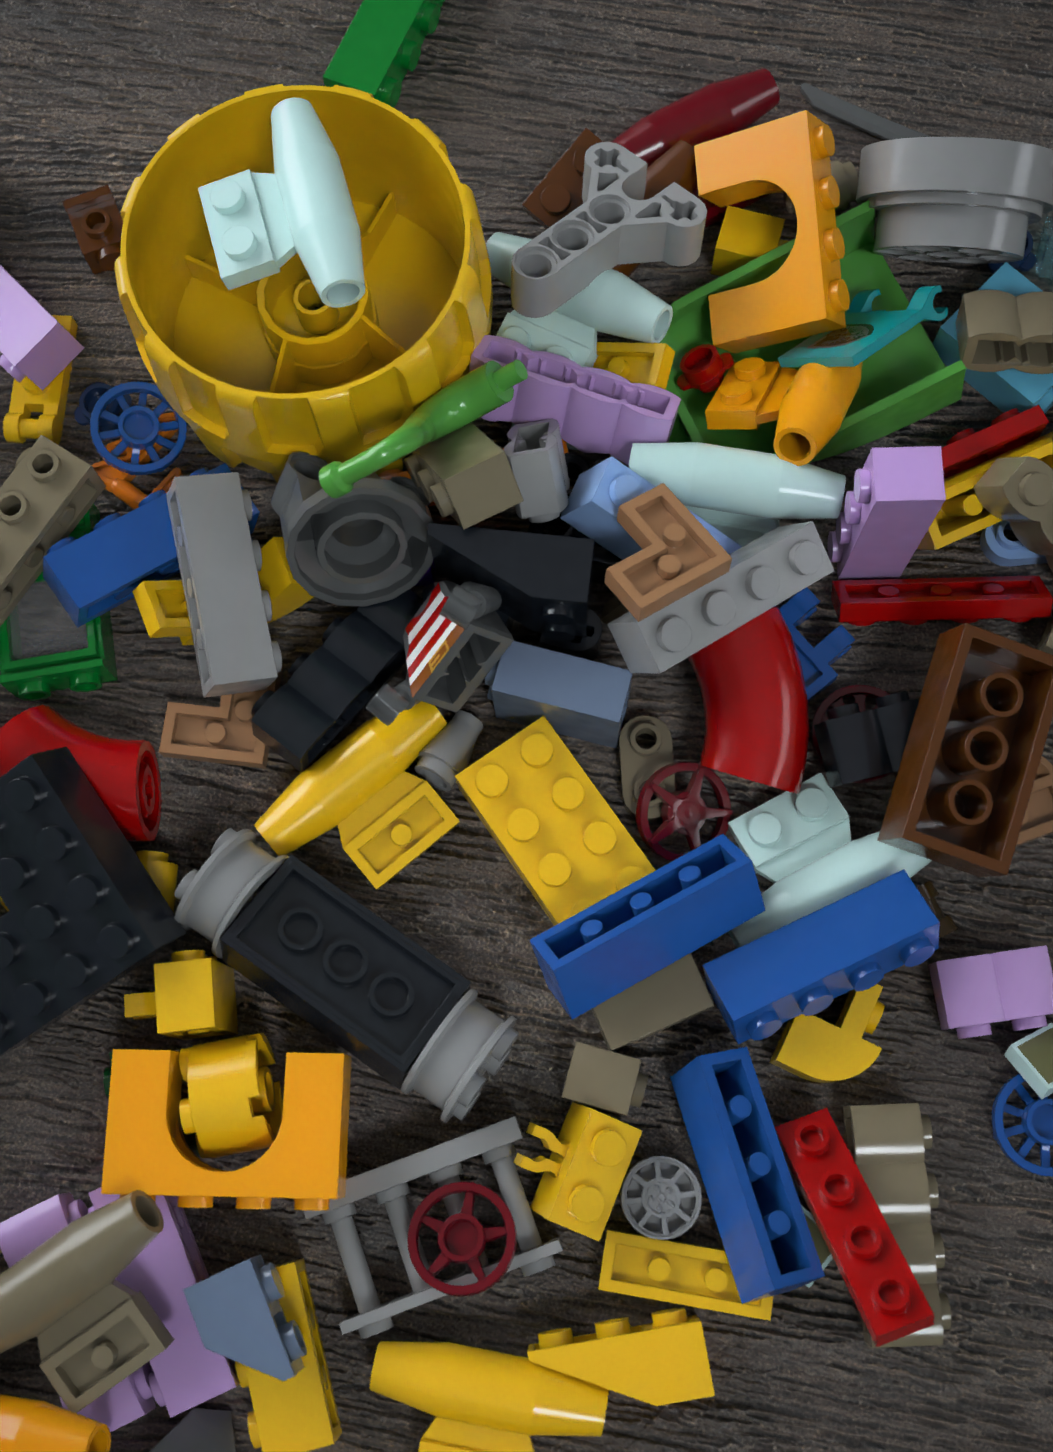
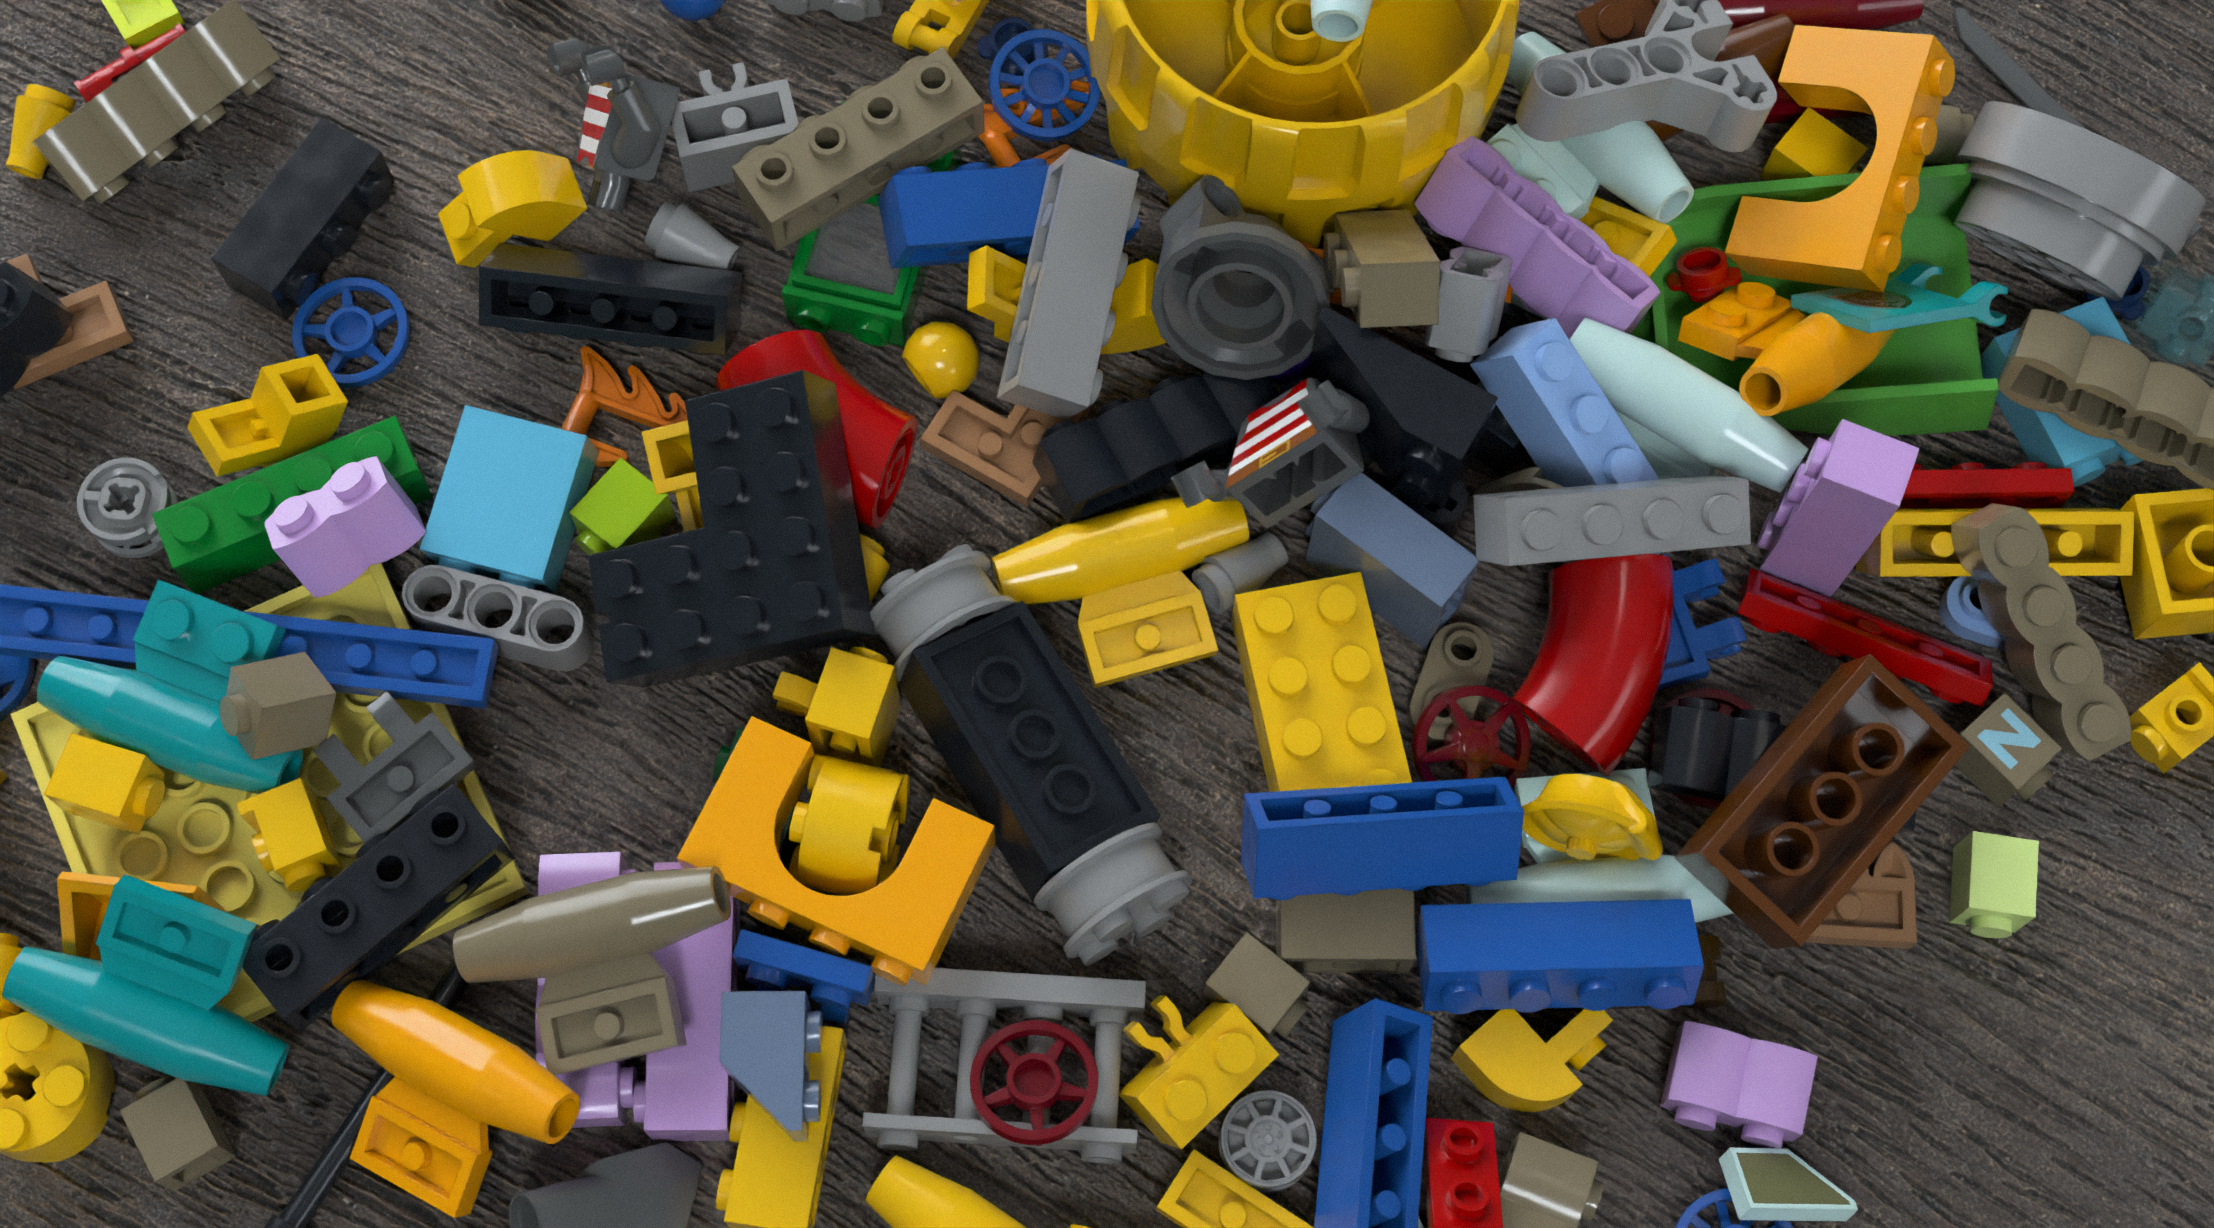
camera: 15 degrees right, 5 degrees down
(149, 679) = (942, 358): none -> yellow piece
(222, 1233) = (832, 979): none -> blue plate
(438, 416) = (1388, 199): bright green animal -> none
(674, 555) = (1577, 447): medium nougat plate -> none
(803, 837) = (1592, 819): none -> yellow piece

